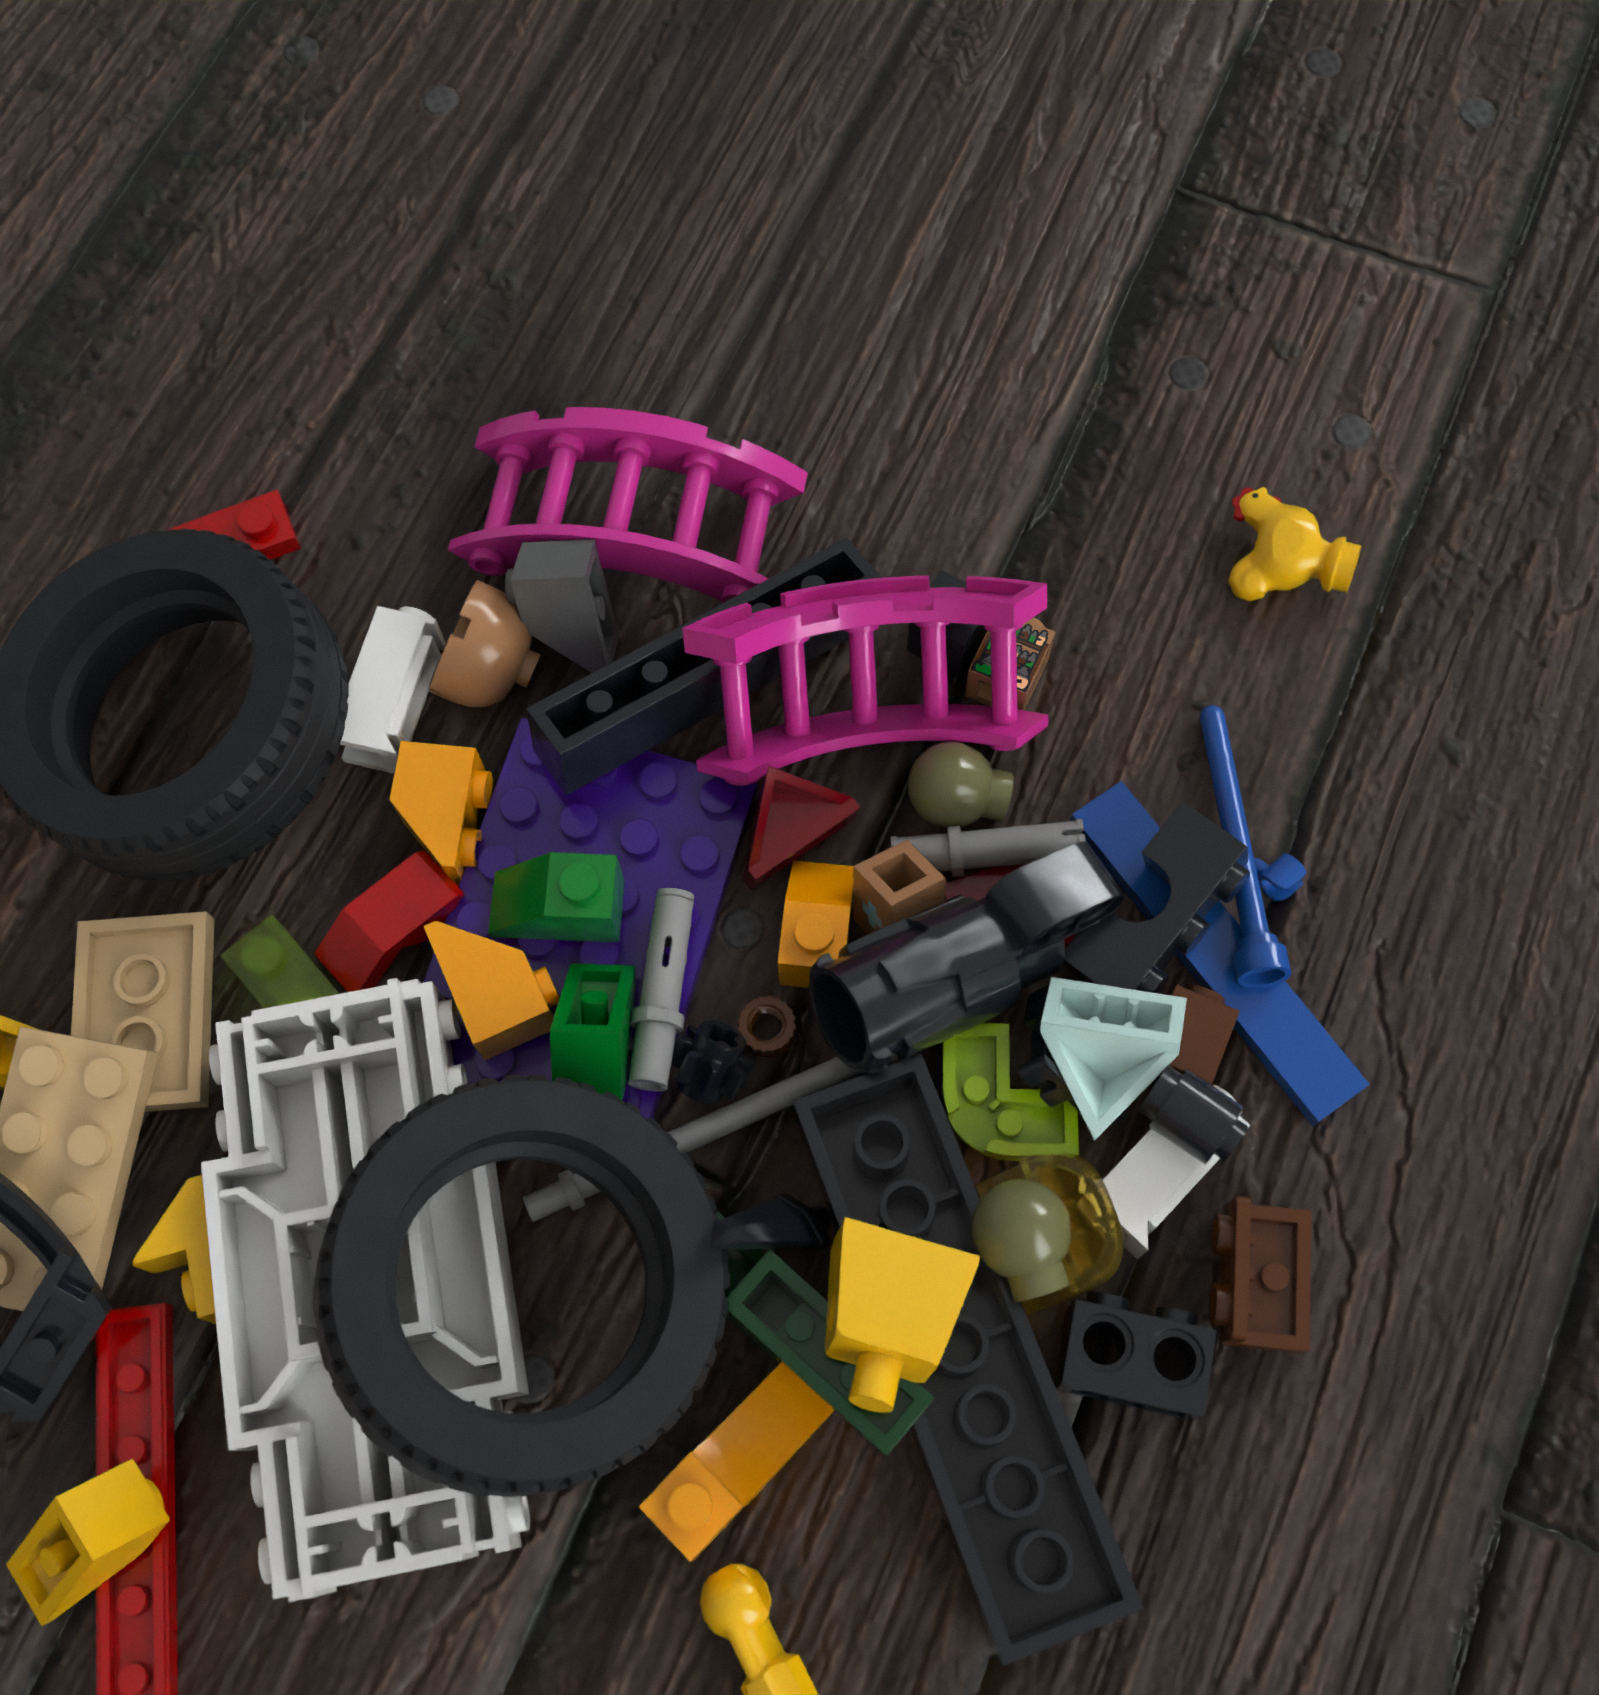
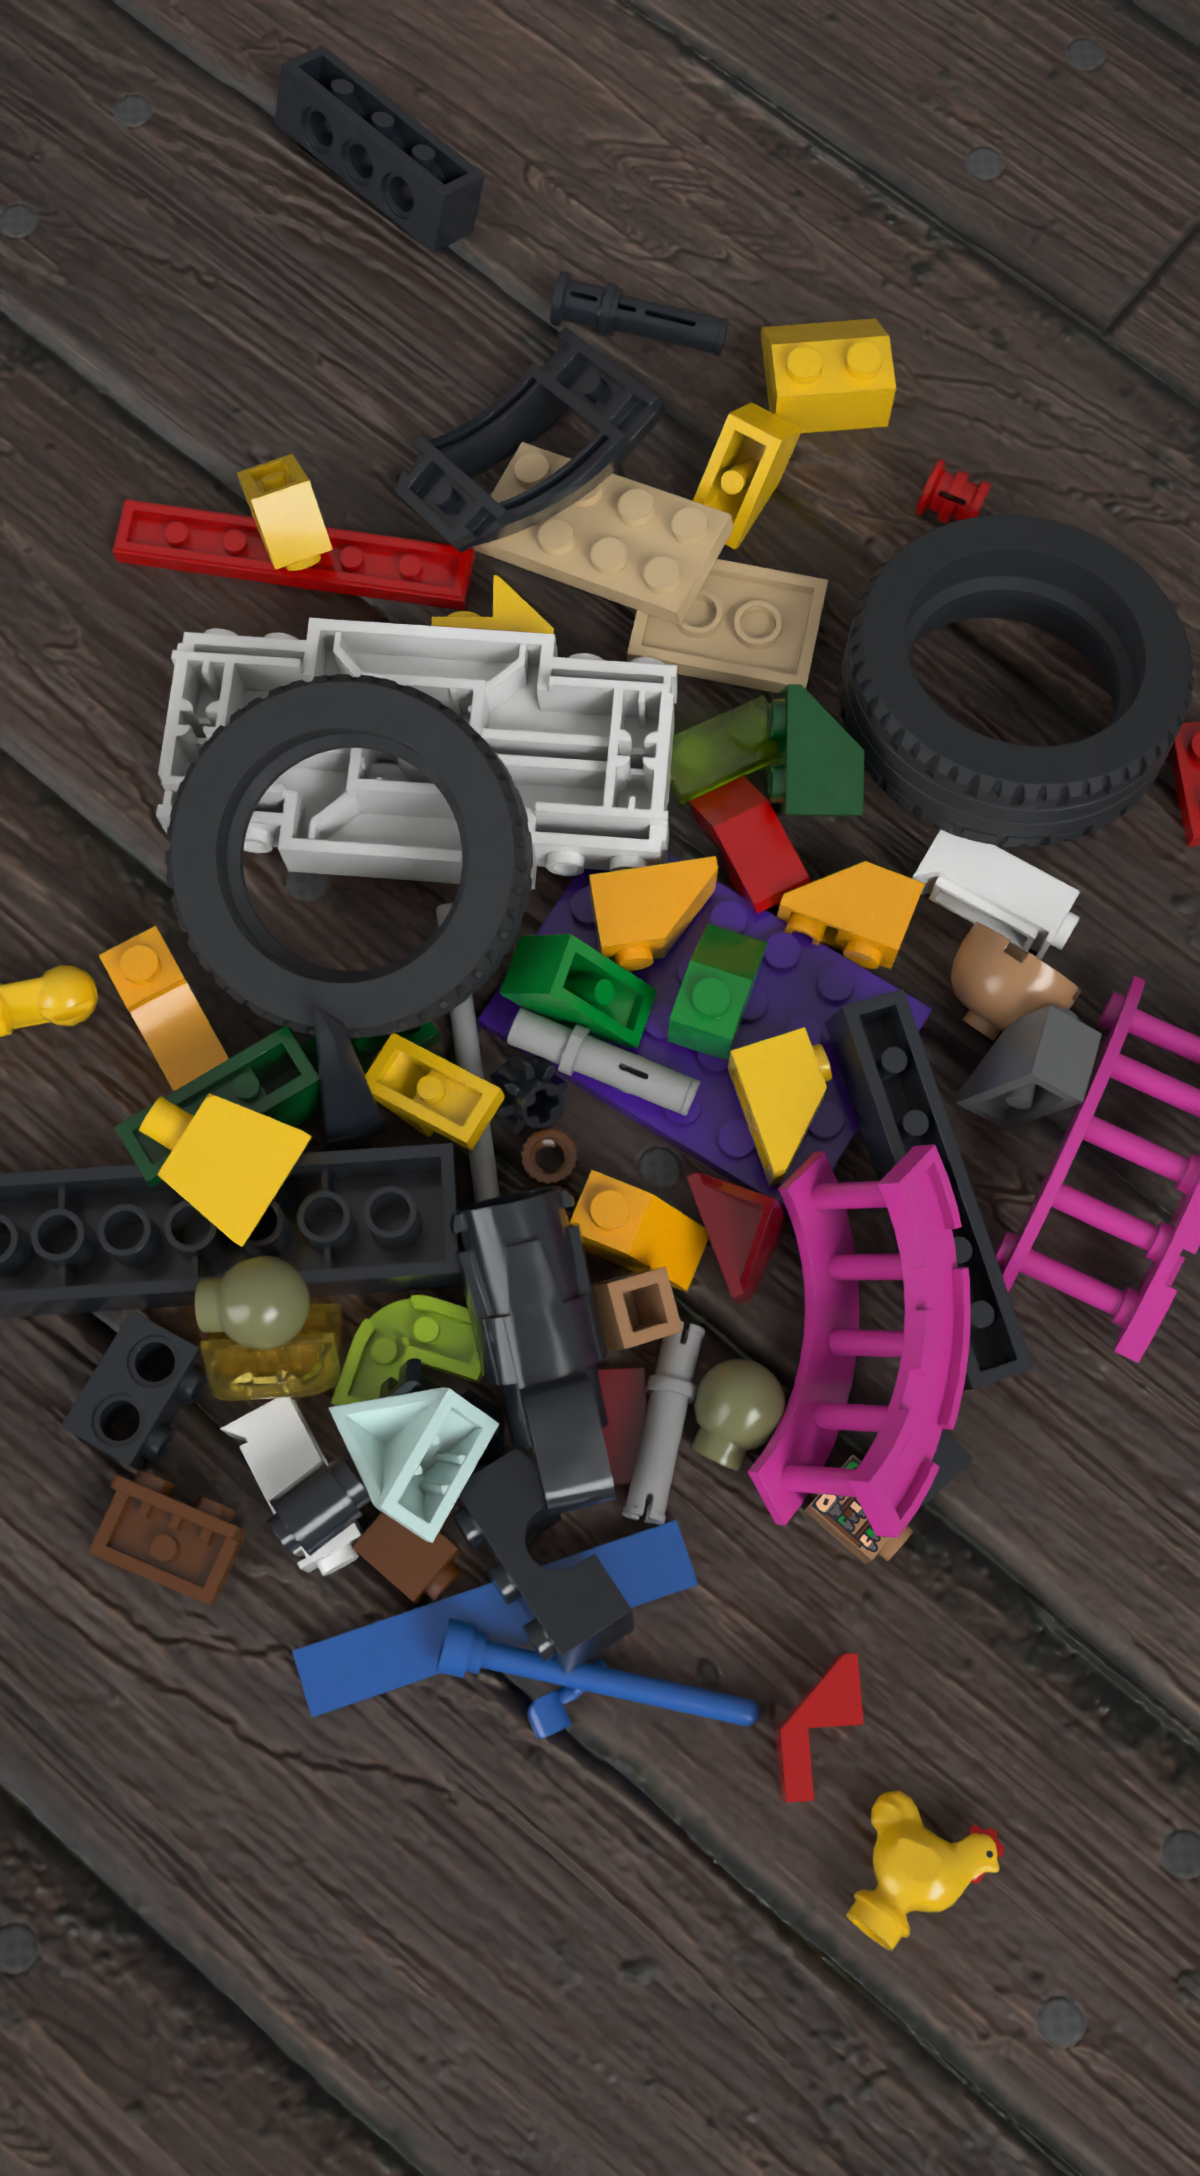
camera: 105 degrees right, 5 degrees up
(294, 868) = (817, 760): none -> dark green slope
(657, 811) = (779, 1093): none -> yellow slope
(741, 1142) = (432, 1092): none -> yellow slope
(1185, 651) = (828, 1703): none -> red slope

